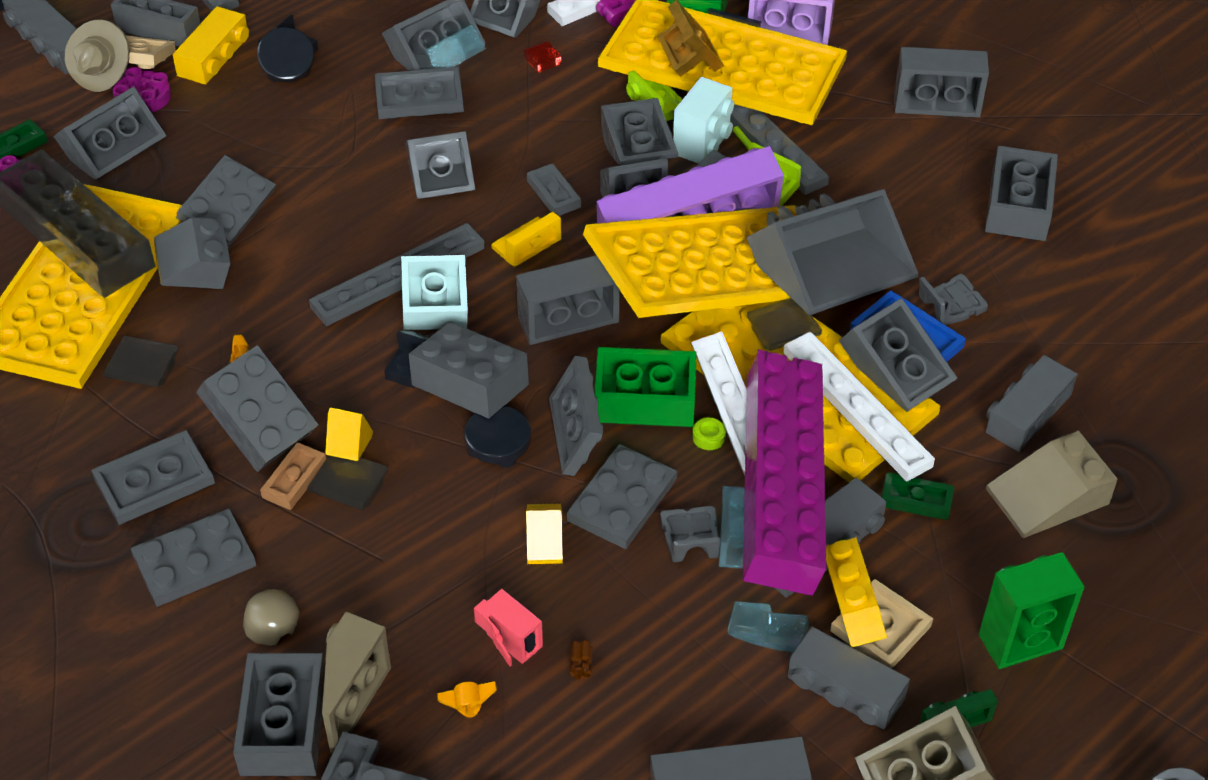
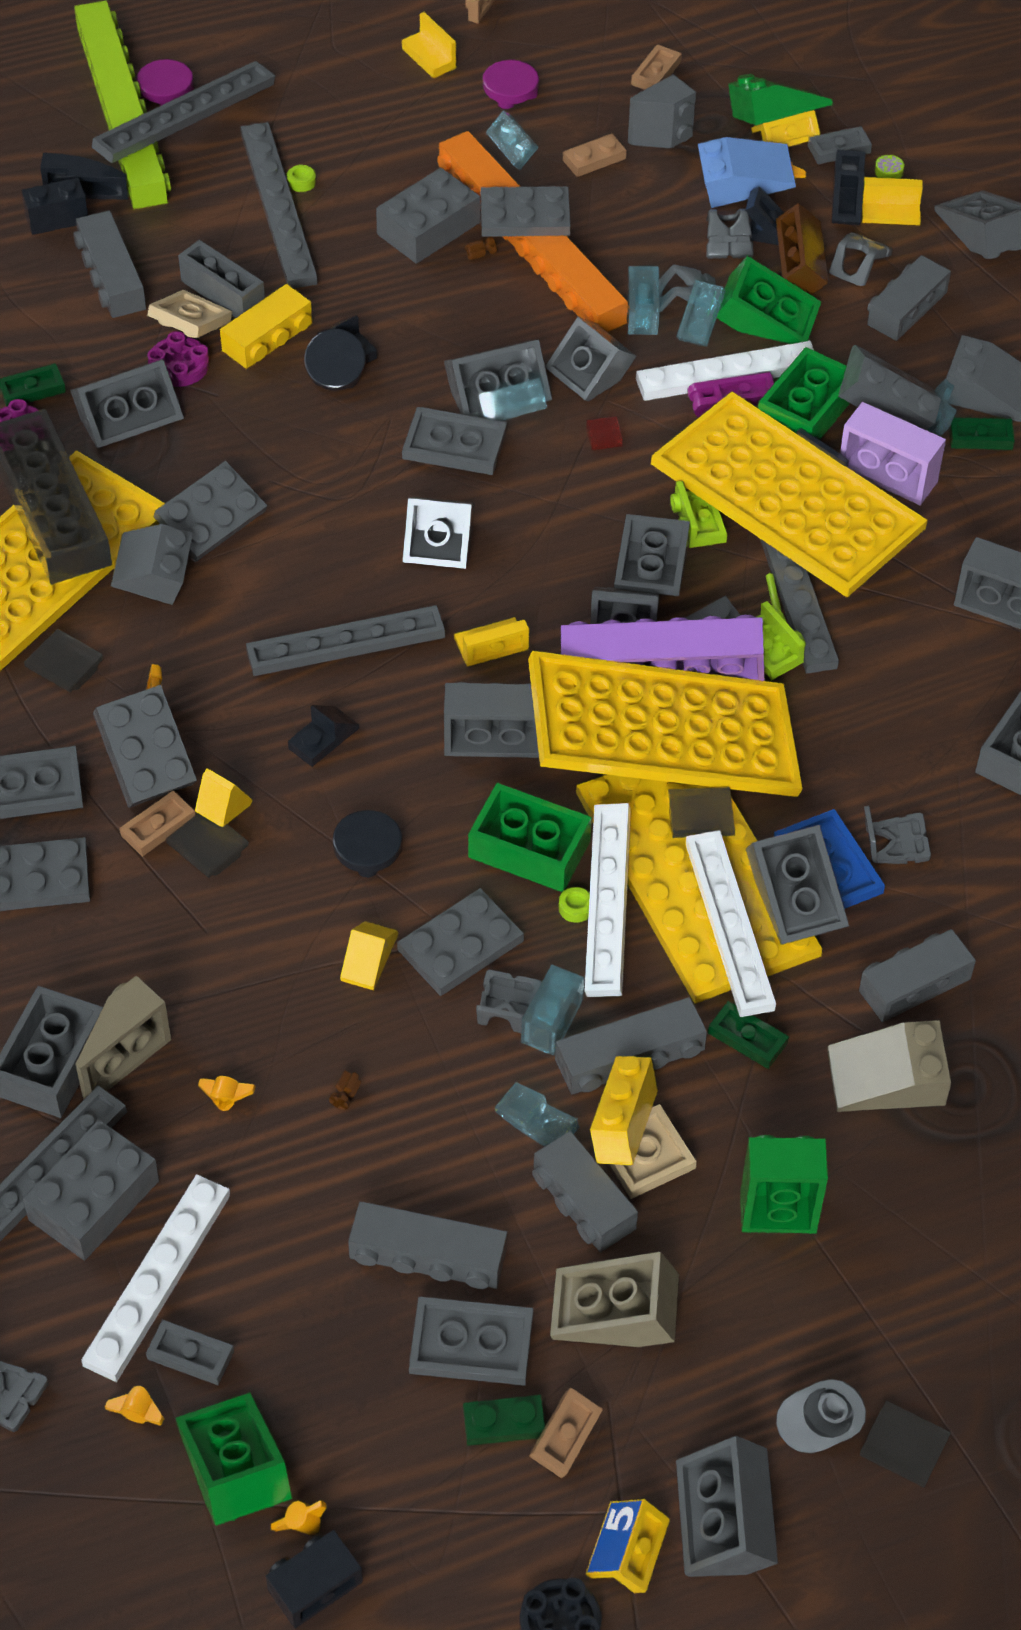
camera: 20 degrees right, 5 degrees up
(97, 55) = (144, 310): dark tan hat -> none
(270, 616) = (81, 955): dark tan hair -> none
(433, 291) = (366, 673): light aqua brick -> none
(469, 369) = (365, 766): dark grey brick -> none
(510, 626) = (291, 1035): coral piece -> none
(553, 190) = (542, 593): dark grey plate -> none
(575, 416) = (445, 845): dark grey plate -> none
(687, 42) = (751, 466): pearl gold bracket -> none
(703, 119) = (729, 559): light aqua brick -> none
(784, 474) = (612, 969): magenta piece -> none
(834, 250) = (790, 750): dark grey piece -> none
(974, 706) = (687, 1260): dark green plate -> none

